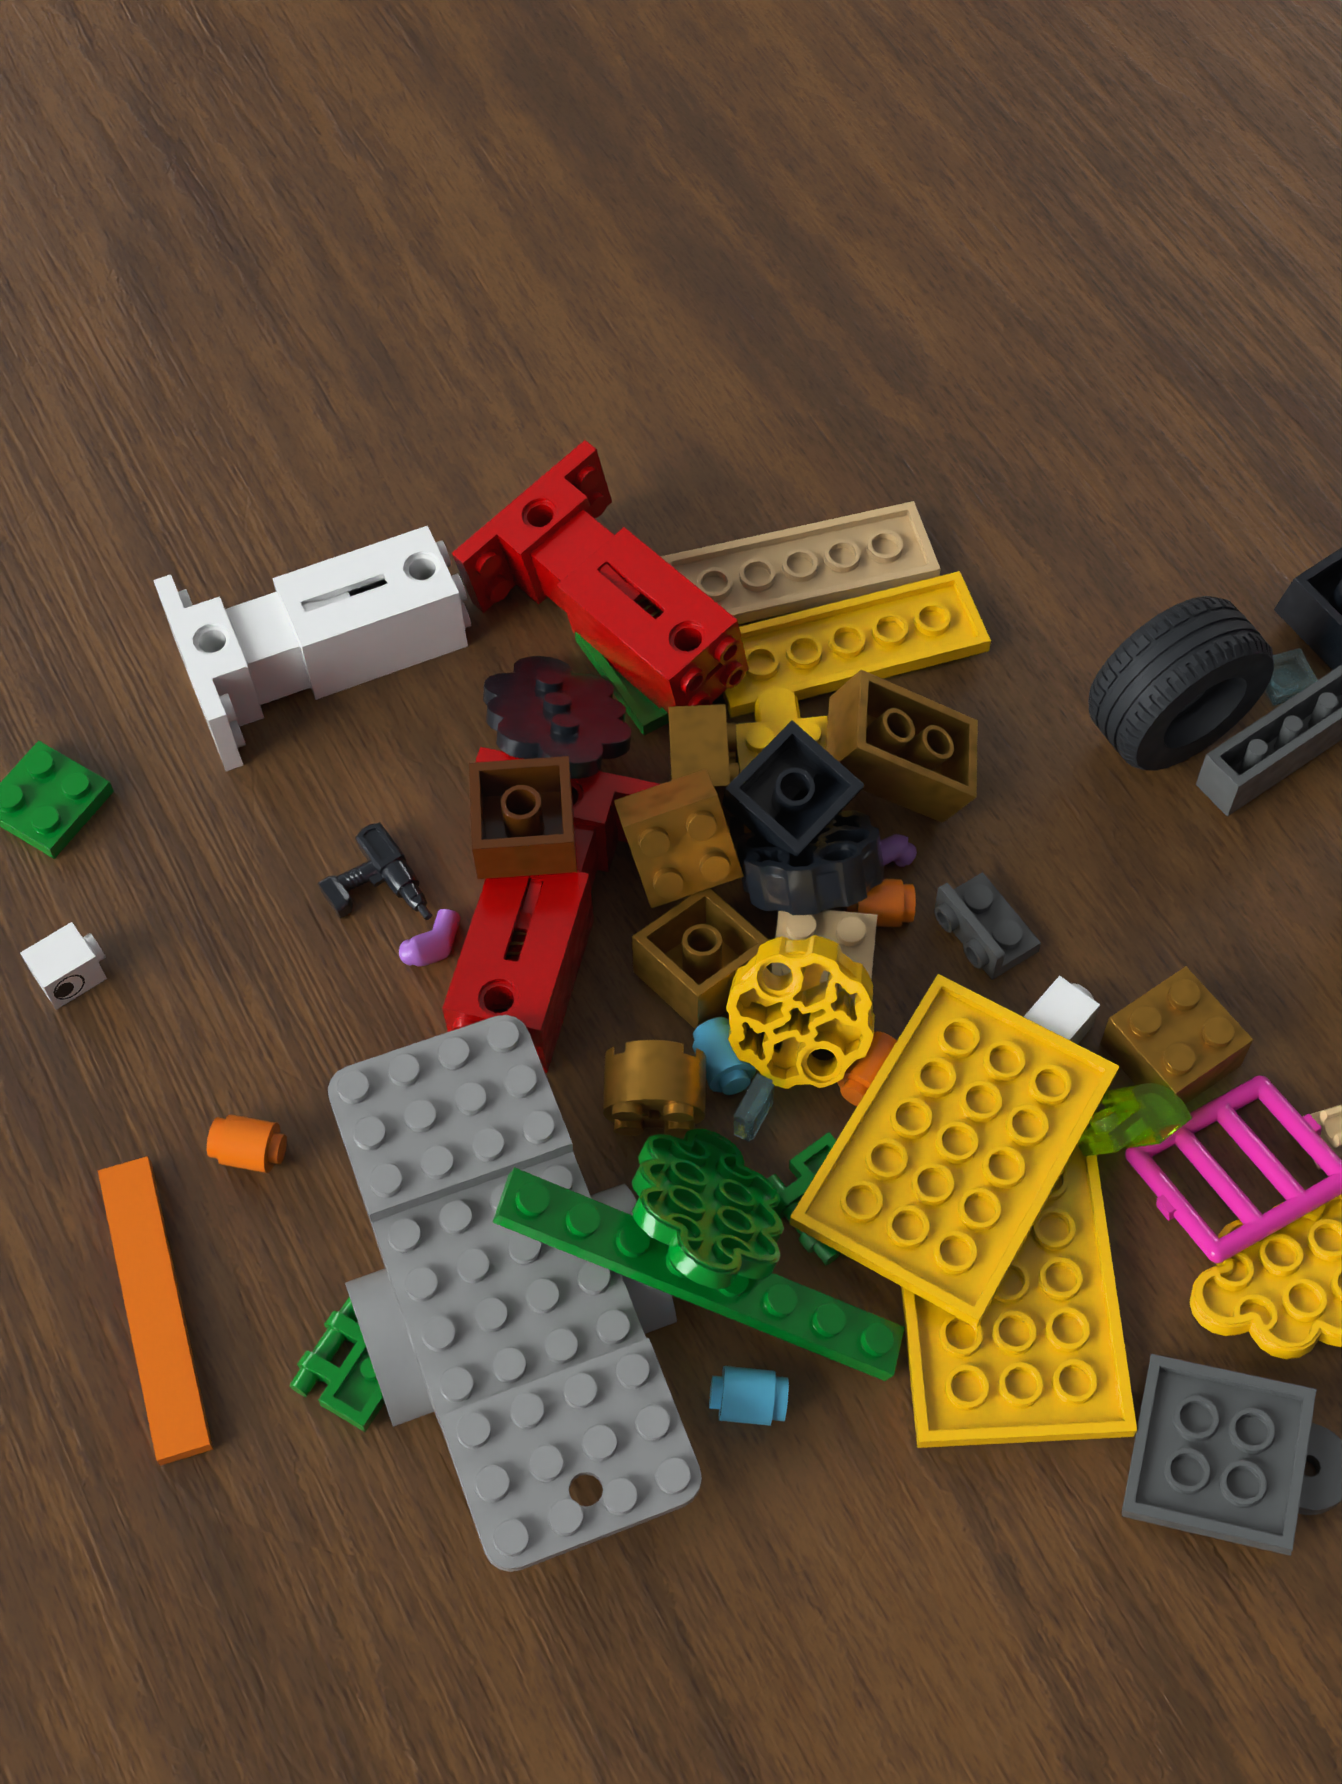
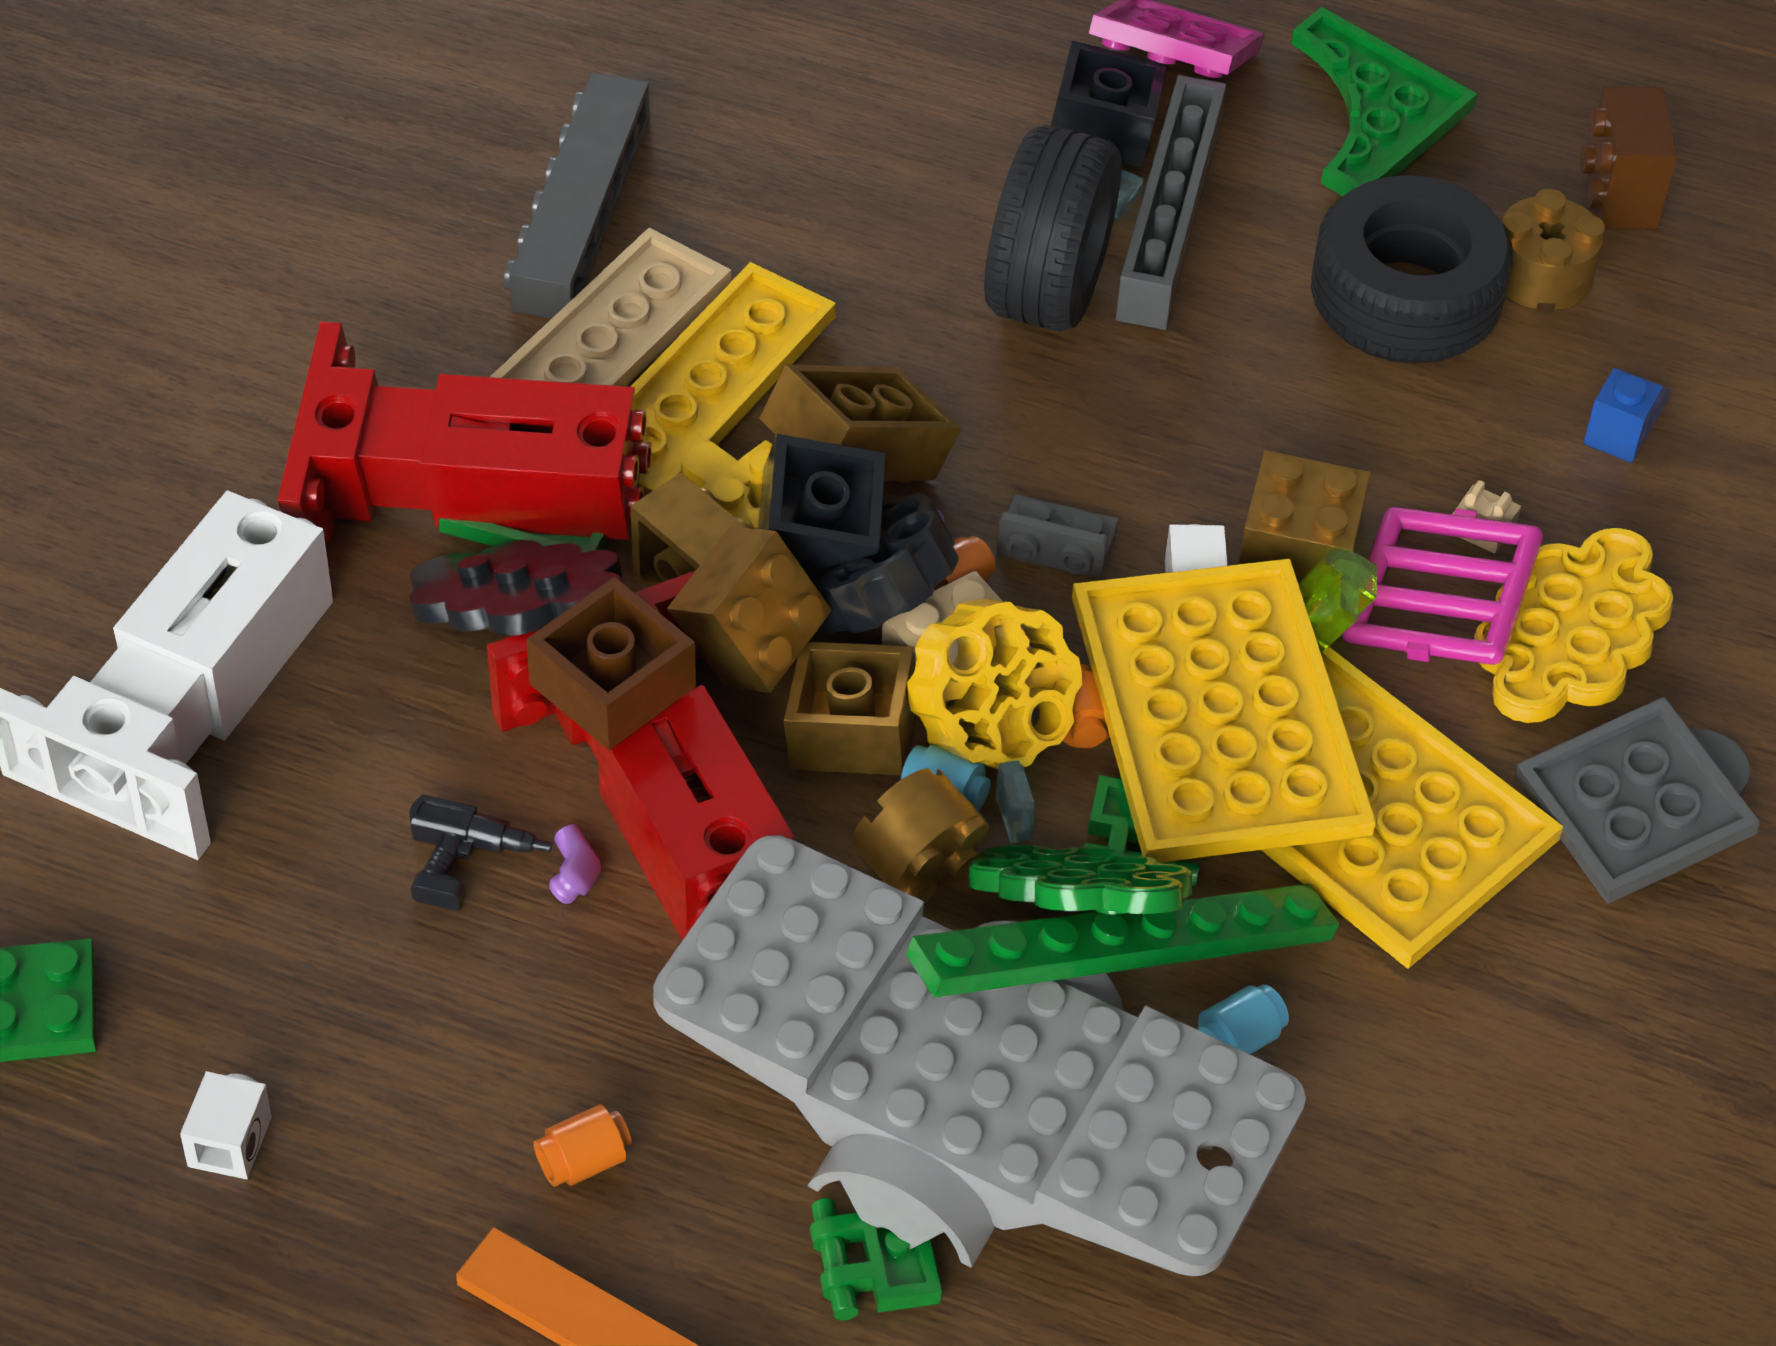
camera: 45 degrees left, 10 degrees down
(893, 446) = (578, 195): none -> dark grey brick

